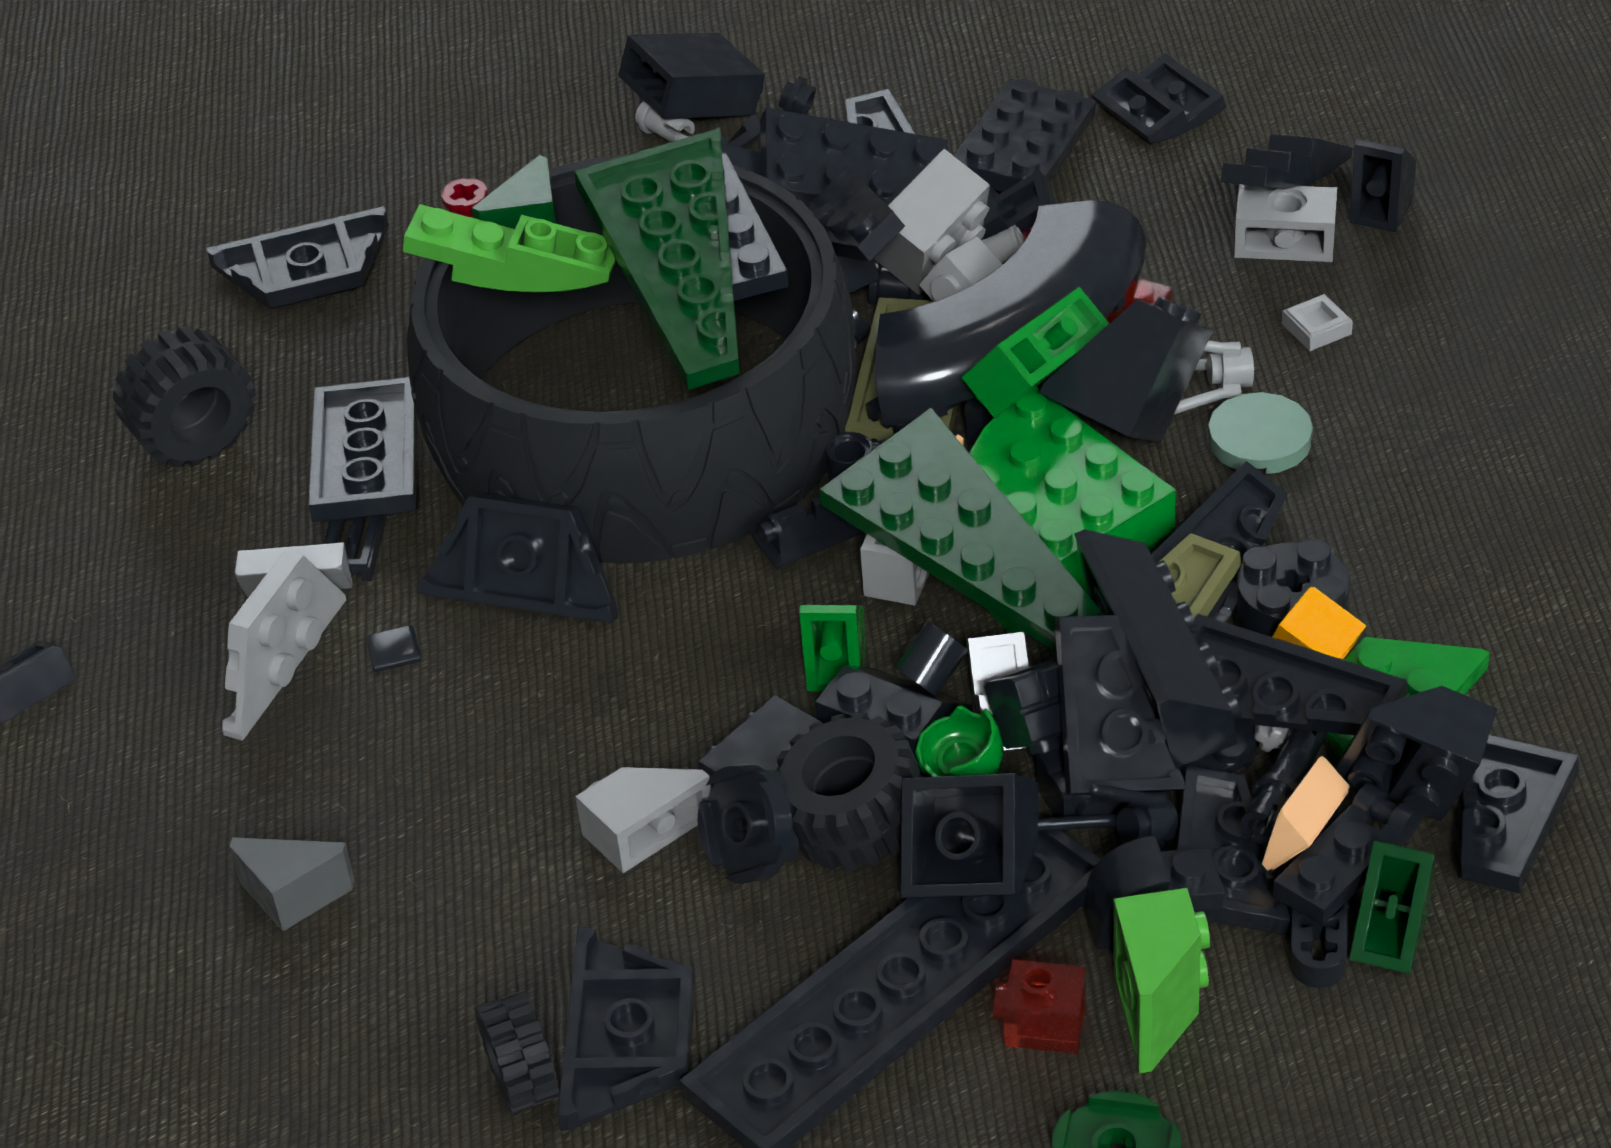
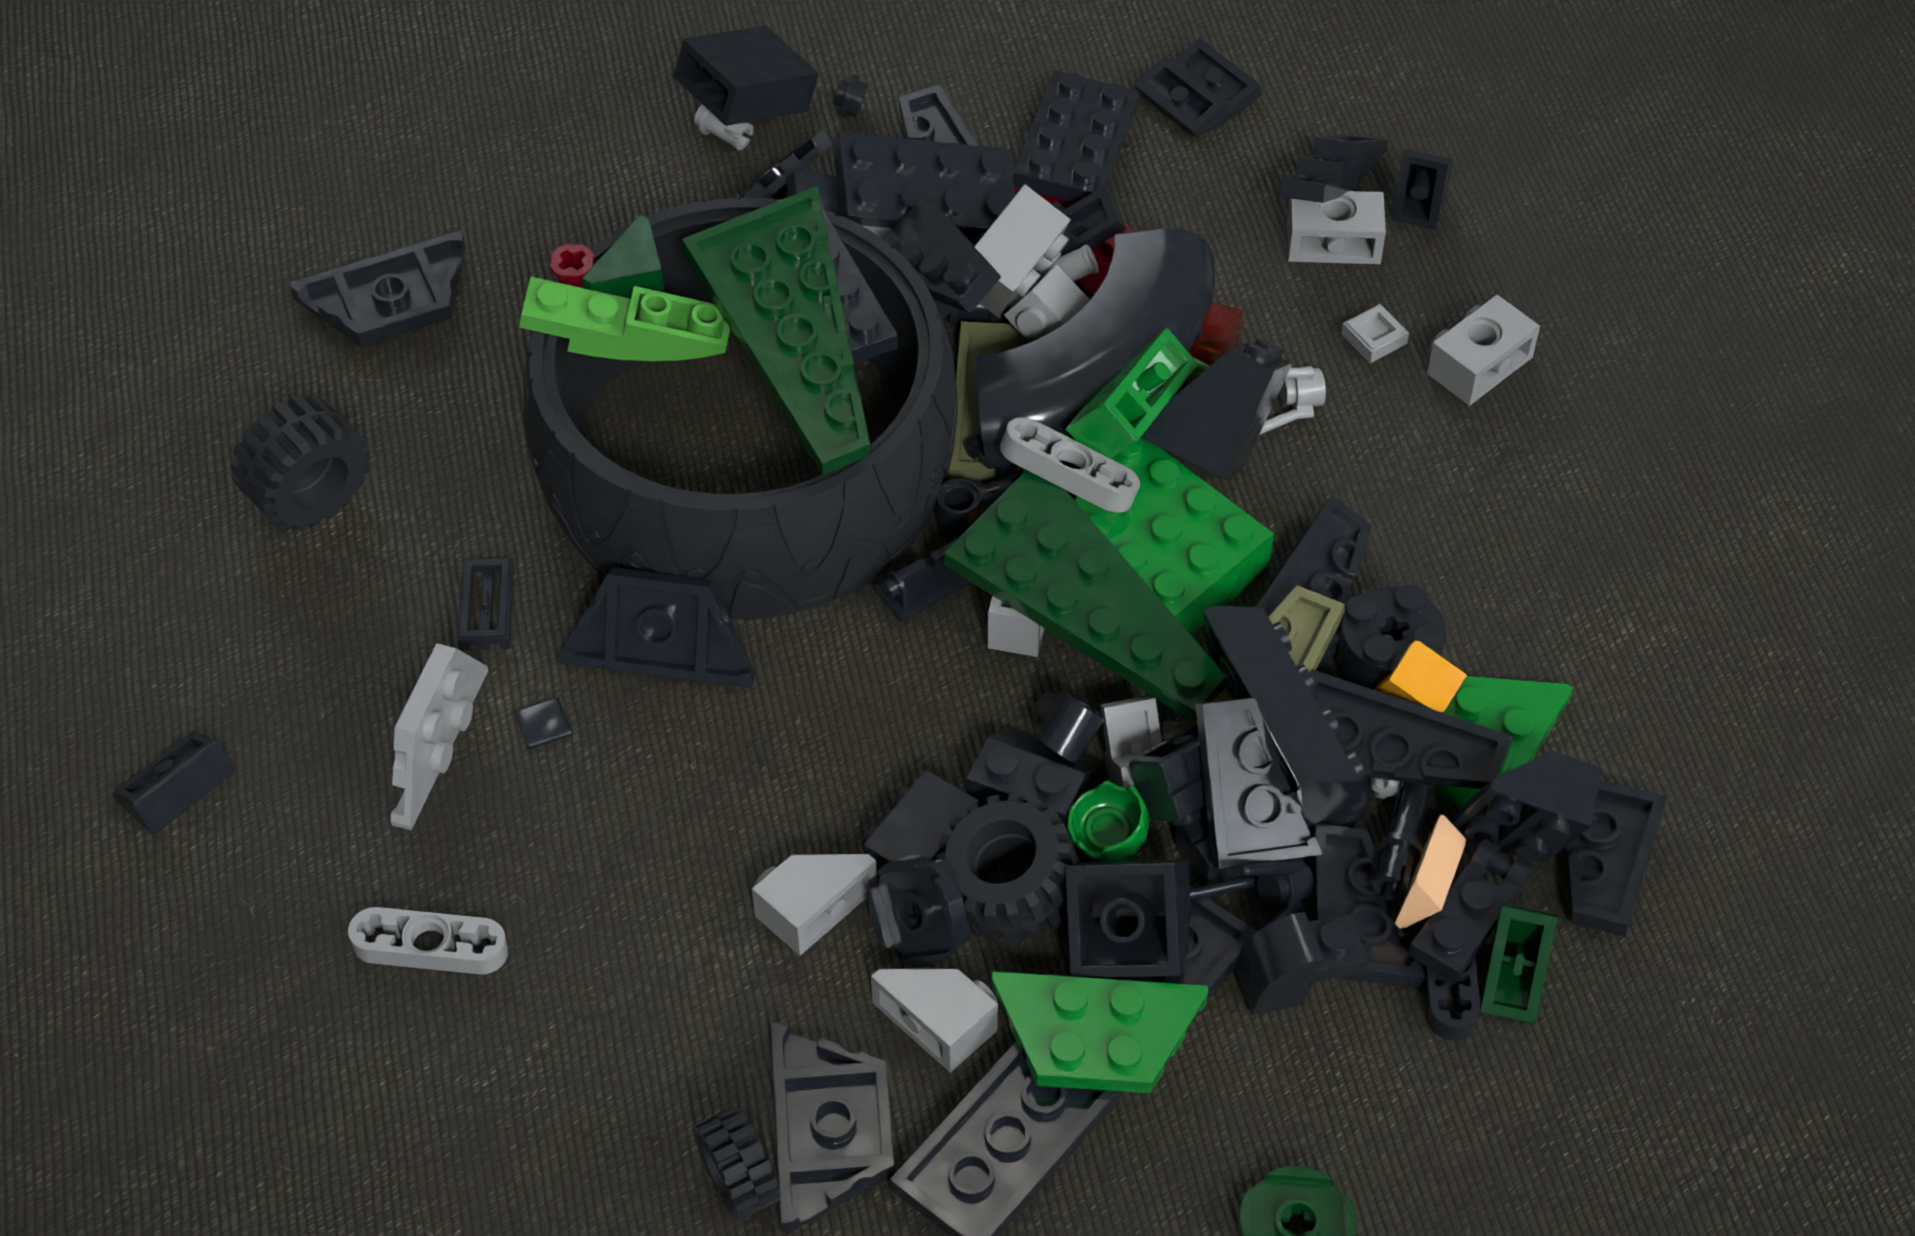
camera: 10 degrees left, 10 degrees up
(201, 830) = (413, 923): none -> light grey beam
(292, 875) = (486, 982): dark grey slope -> none
(328, 558) = (414, 646): light grey slope -> none
(363, 450) = (484, 508): plate -> none
(757, 924) = (938, 1010): none -> light grey slope
(830, 640) = (970, 708): green slope -> none
(923, 946) = (1097, 1028): none -> green wing
(962, 412) = (1112, 483): none -> light grey beam
(1042, 1006) = (1213, 1080): clear red brick -> none
(1158, 969) = (1316, 1042): bright green slope -> none
(1260, 430) = (1336, 456): sand green tile -> none
(1429, 336) = (1482, 349): none -> light grey brick

